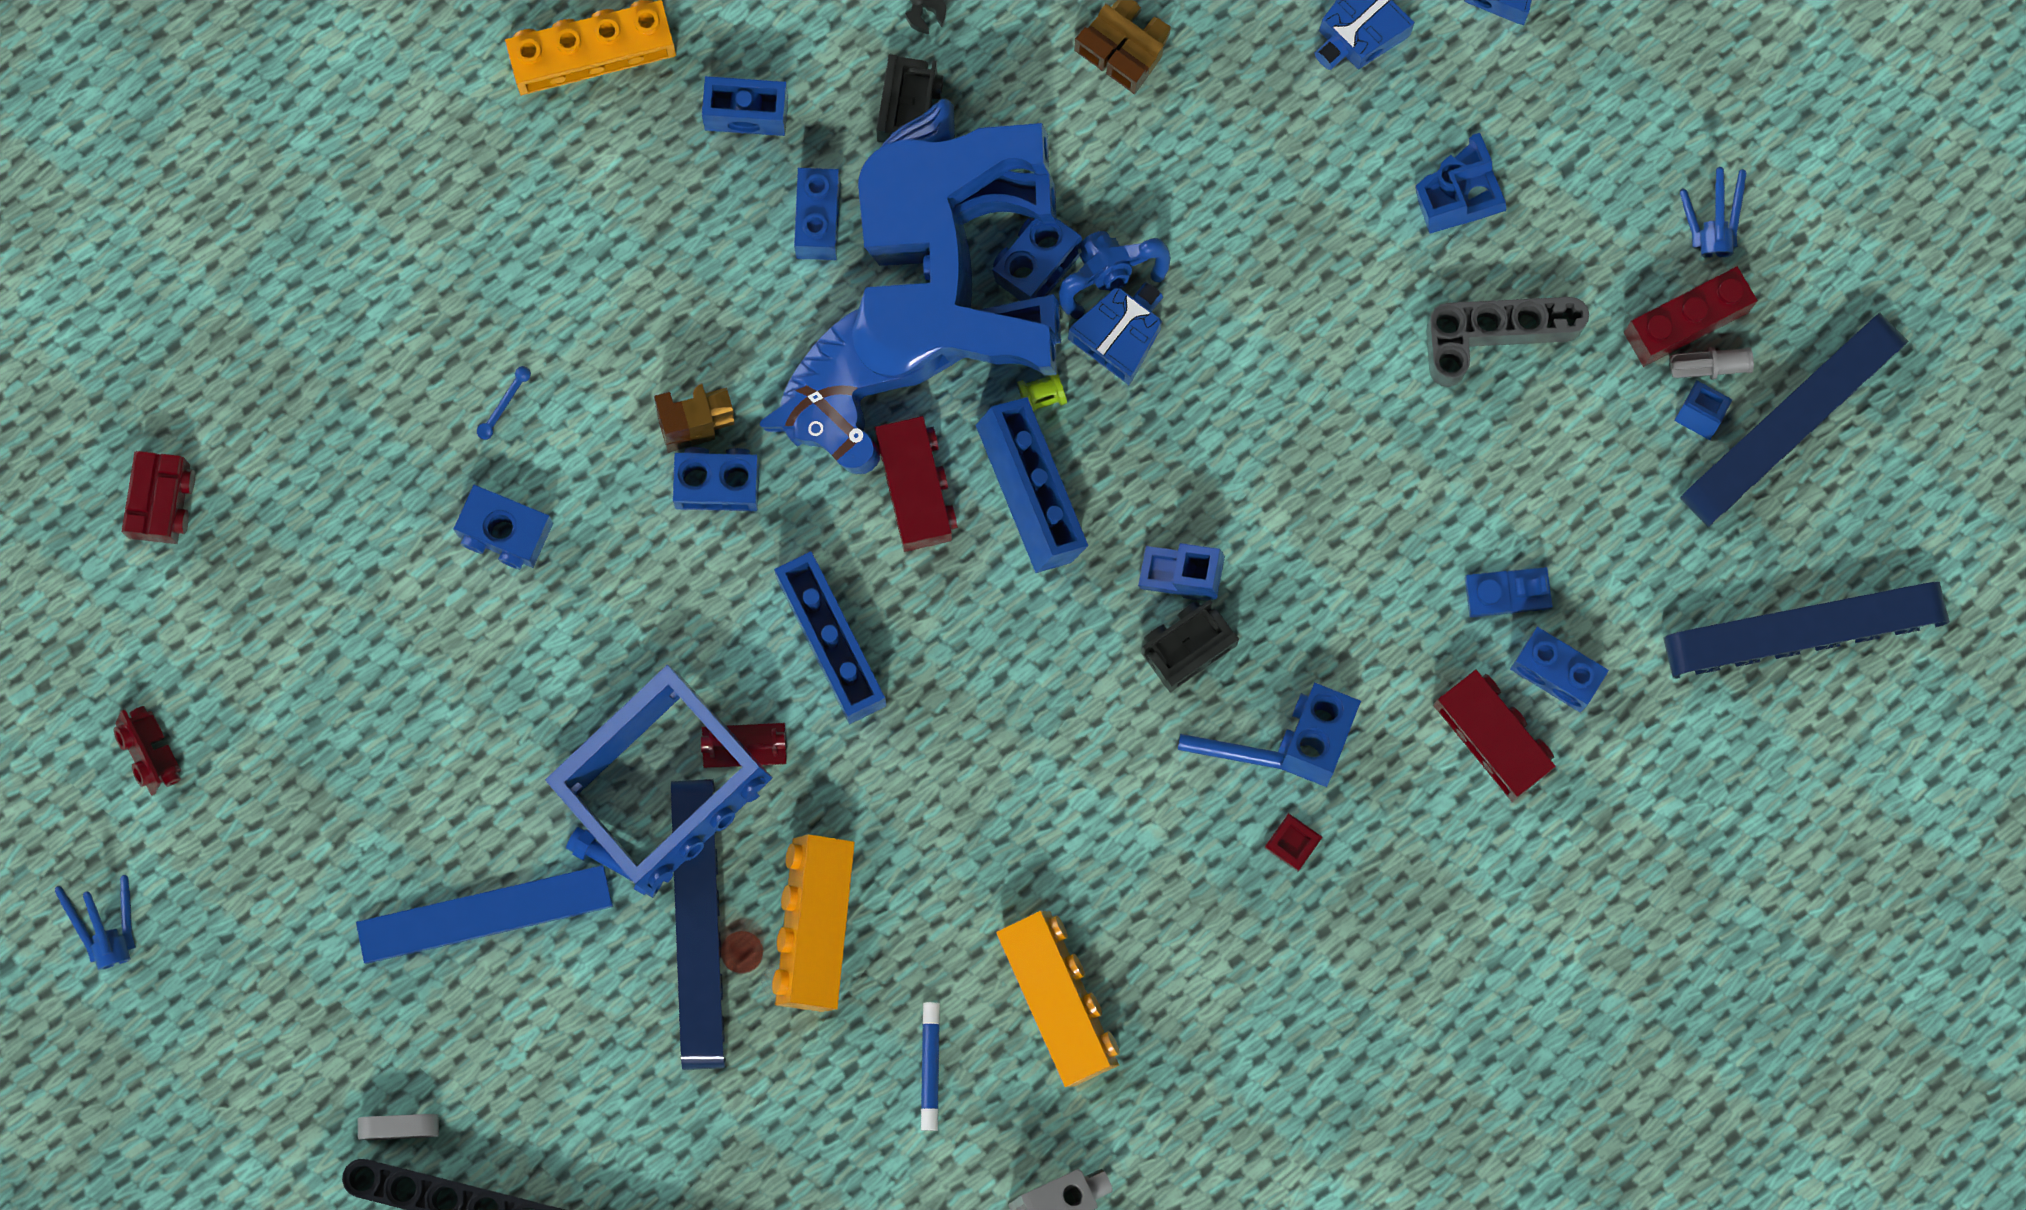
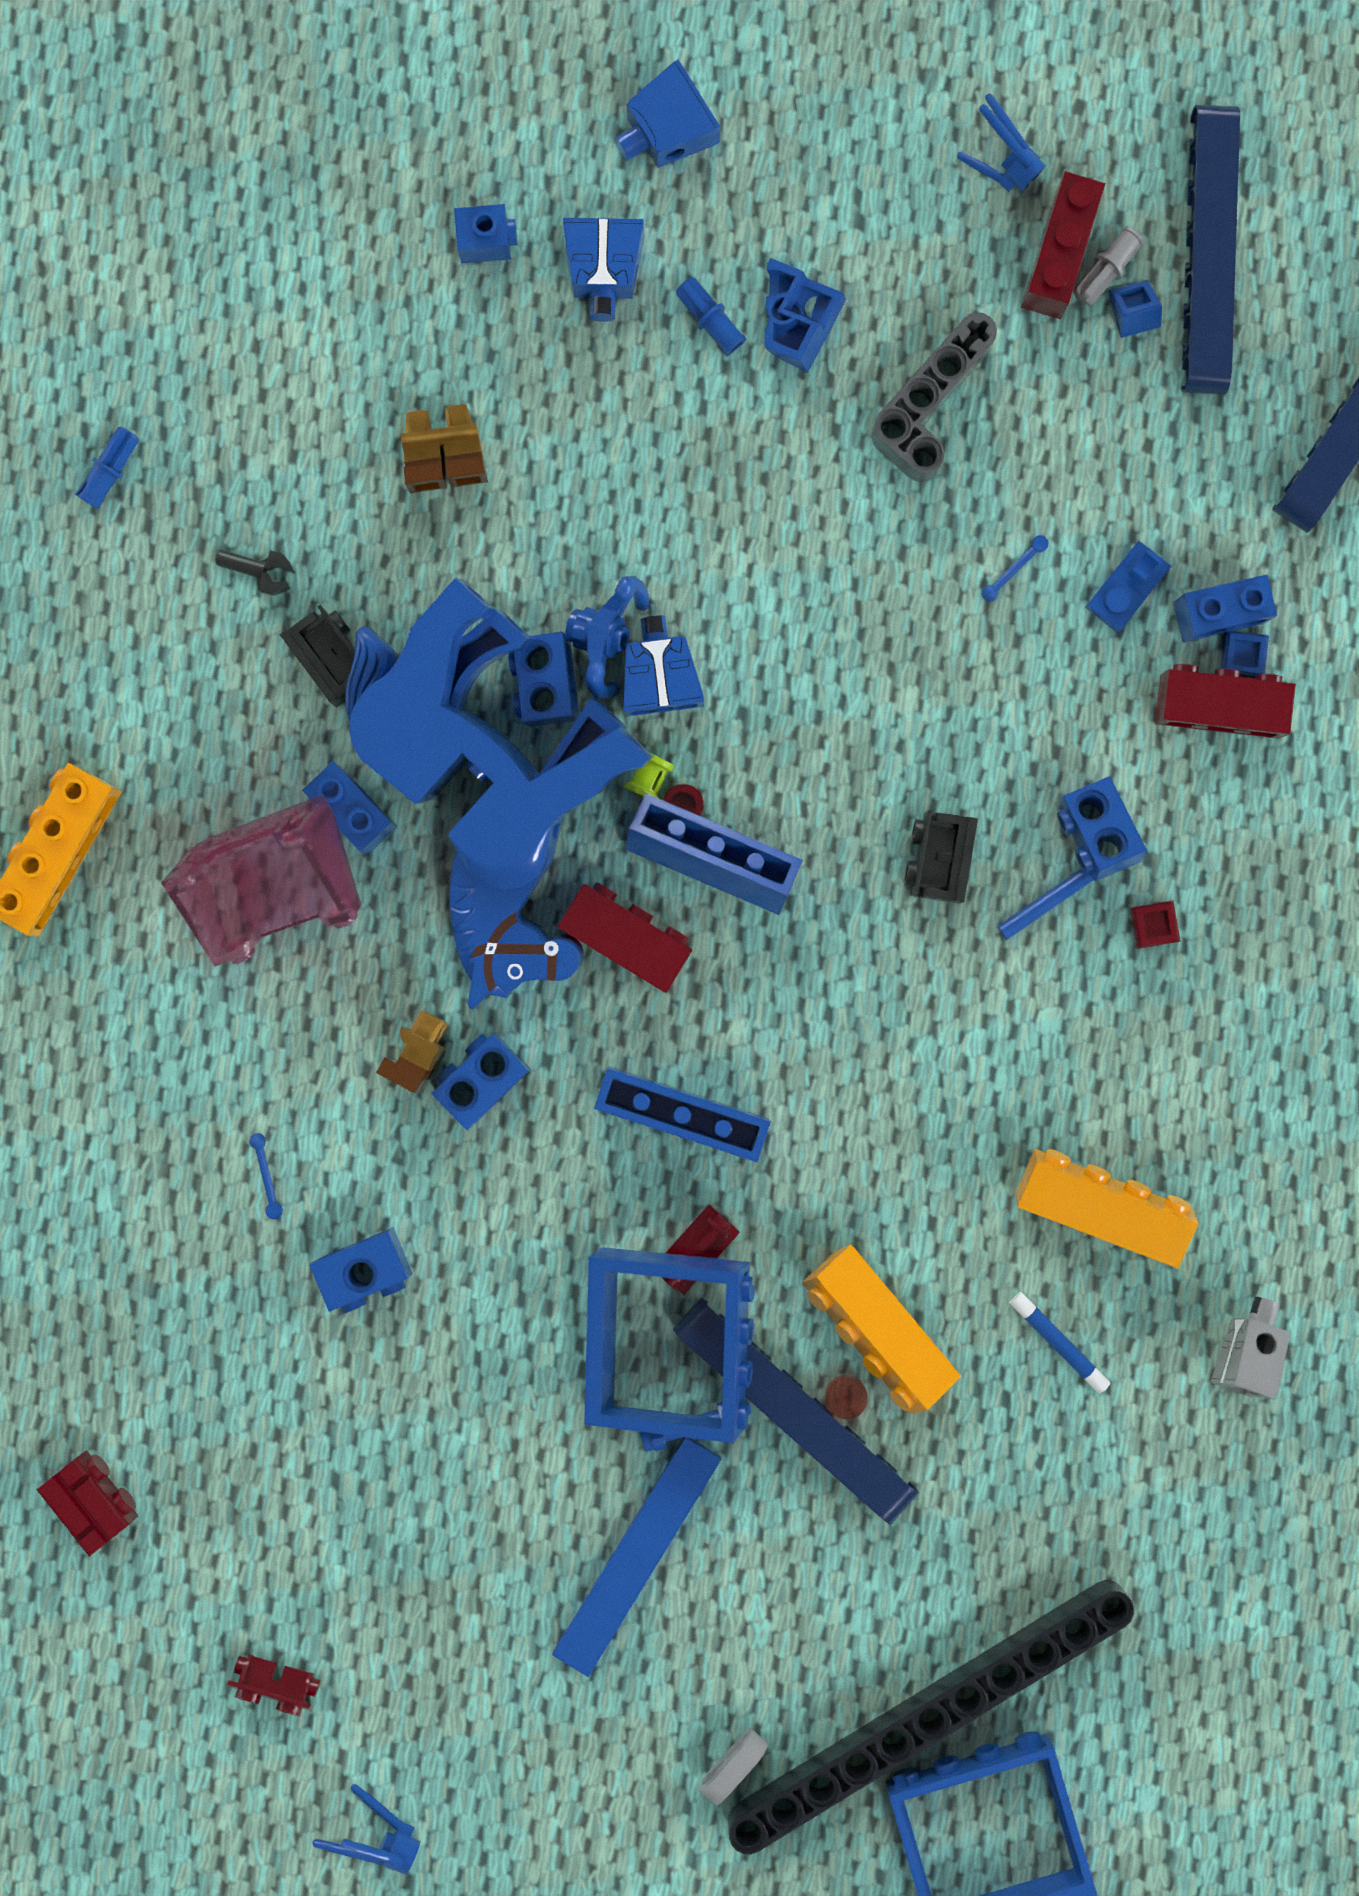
camera: 40 degrees left, 10 degrees up
(710, 203) = (264, 880): none -> clear pink windscreen
(745, 106) = (213, 781): blue brick -> none
(1053, 432) = (685, 797): none -> dark red tile
(1187, 572) = (885, 808): blue brick -> none
(1399, 131) = (710, 315): none -> blue axle
(1475, 503) = (1038, 544): none -> blue hinge
(1546, 718) = (1245, 653): none -> blue tile

